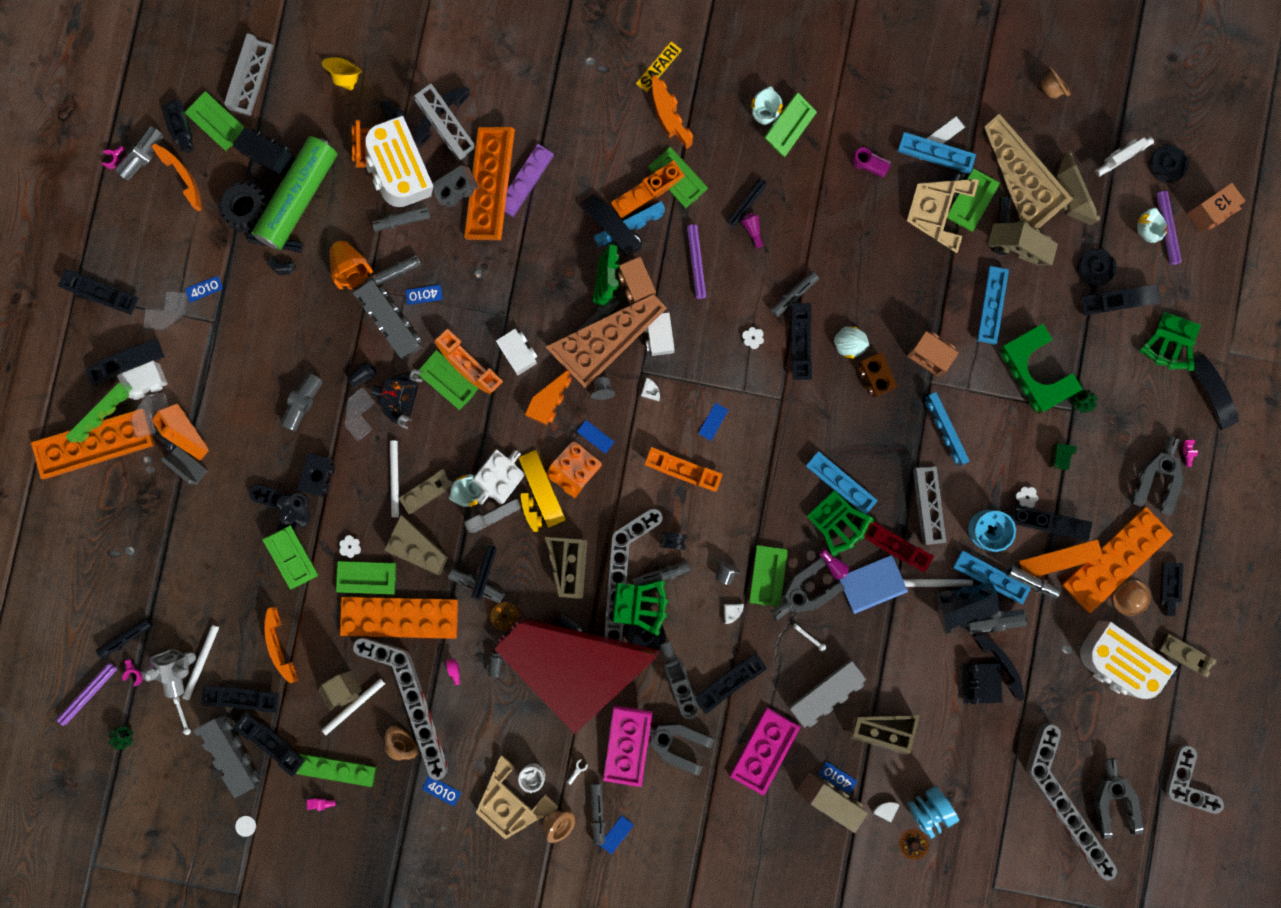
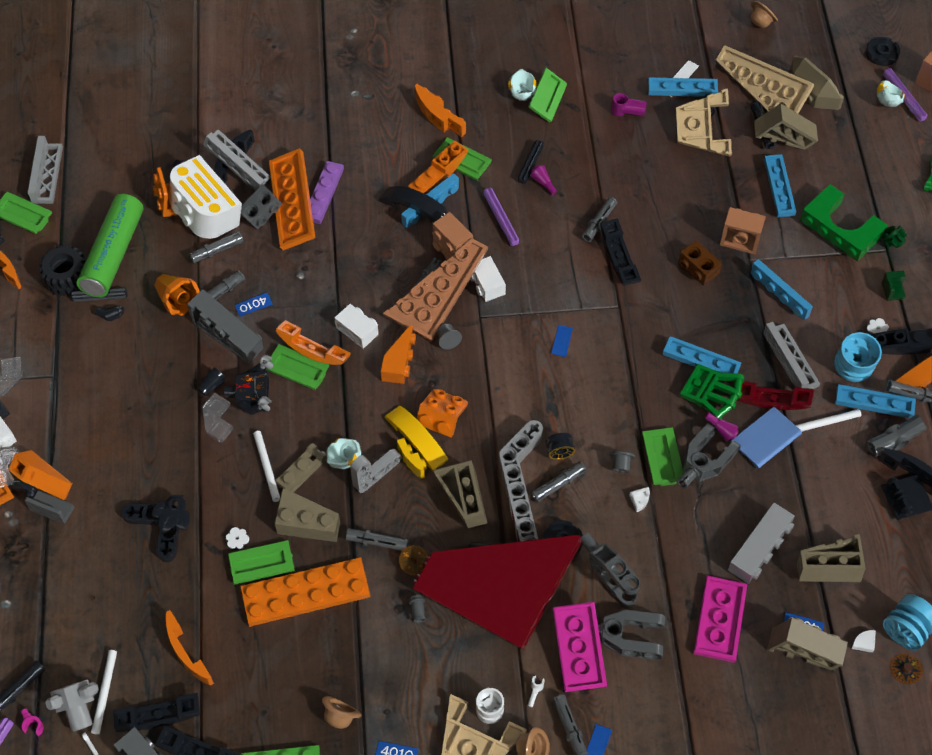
camera: 15 degrees left, 25 degrees down
(203, 289) = (37, 351): blue sticker -> none
(264, 151) = (74, 222): black wedge -> none
(290, 557) = (178, 561): bright green piece -> none
(300, 401) = (156, 418): dark grey piece -> none
(307, 481) = (184, 469): black brick -> none
(340, 690) = (261, 670): dark tan wedge -> none
(342, 72) = (134, 150): yellow piece -> none
(353, 706) = (279, 691): white bar -> none
(411, 706) = (343, 670): light grey beam -> none
(453, 670) = (376, 625): dark pink piece -> none
(484, 572) = (381, 522): black axle -> none
(498, 477) = (370, 433): white plate -> none
(595, 436) = (454, 381): blue sticker -> none
(605, 277) = (422, 241): green plate -> none
(628, 603) = (535, 508): green plate -> none
(650, 390) = (494, 329): white tile -> none
(659, 66) = (420, 78): sticker -> none
(683, 469) = (548, 386): orange slope -> none
(730, 682) = (663, 559): black slope -> none
(757, 334) = (574, 263): white plant -> none
(822, 647) = (708, 495): white hinge -> none
(851, 342) = (665, 243): light aqua hair -> none
(966, 604) = (861, 425): black wedge -> none
(968, 209) = (728, 118): bright green piece -> none
(1096, 267) = (857, 138): black tile -> none
(1120, 299) = (889, 151): black slope -> none
(1124, 154) = (842, 48): white plate -> none

